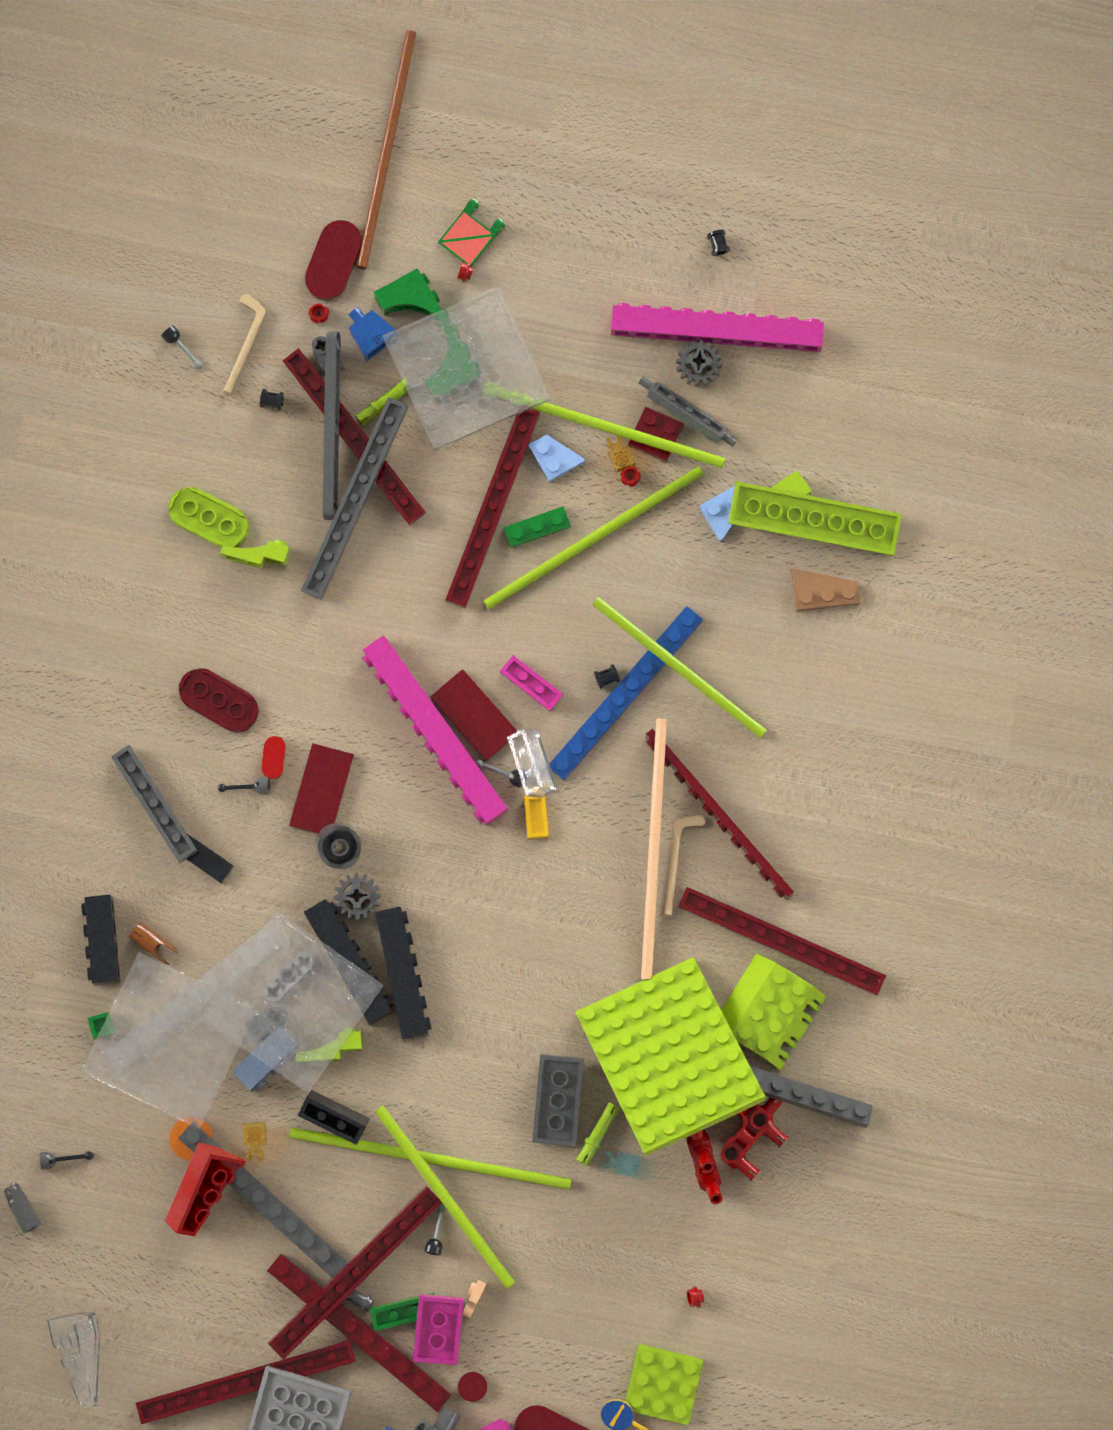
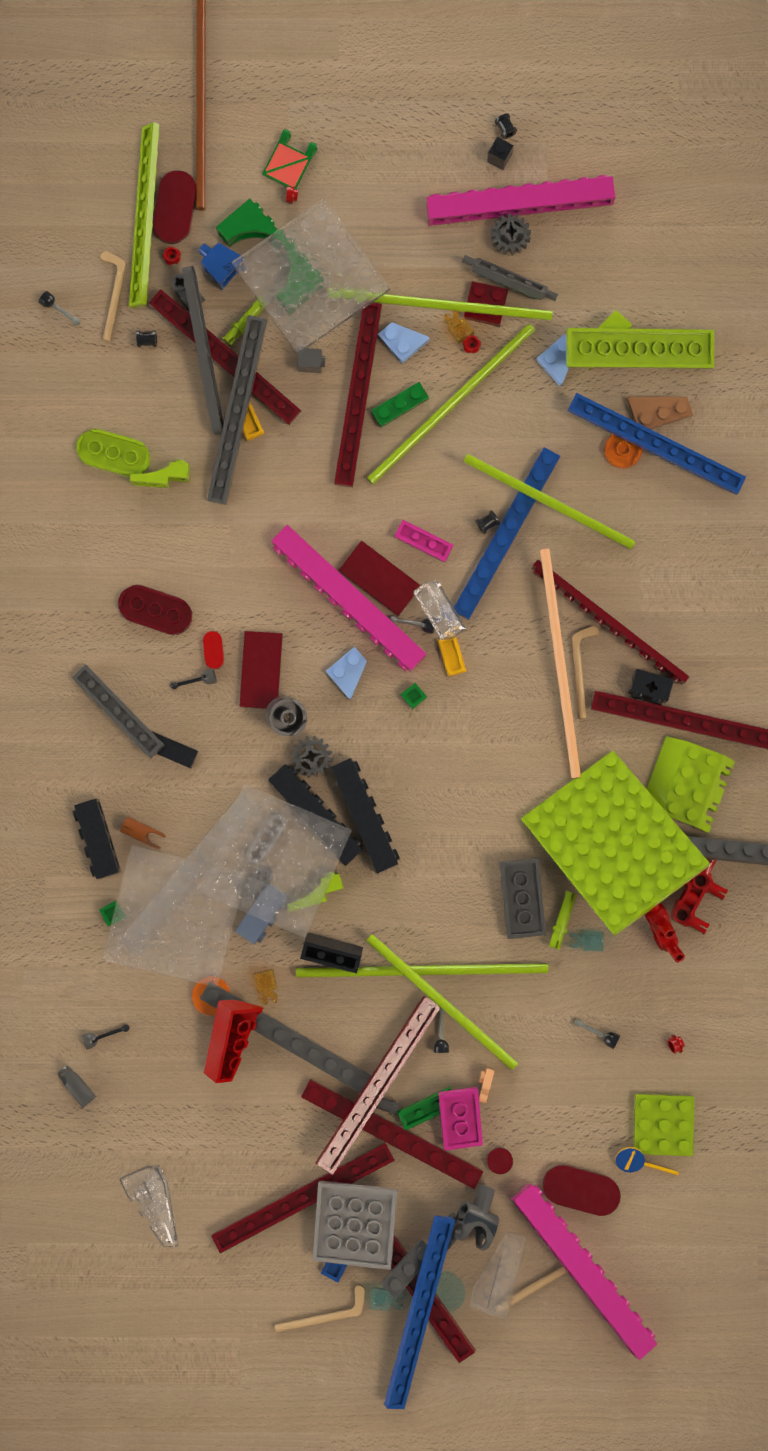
camera: 10 degrees left, 5 degrees up
(297, 263) = (144, 215): none -> lime plate
(368, 518) = (252, 426): none -> yellow tile
(417, 811) = (347, 671): none -> light blue wing
(448, 460) = (311, 361): none -> dark grey brick
(484, 852) = (413, 696): none -> green plate
(623, 1276) = (610, 1038): none -> hinge
(705, 272) = (500, 153): none -> black brick
(743, 884) = (660, 683): none -> black brick
(774, 626) = (621, 452): none -> orange tile
(811, 627) = (656, 443): none -> blue plate

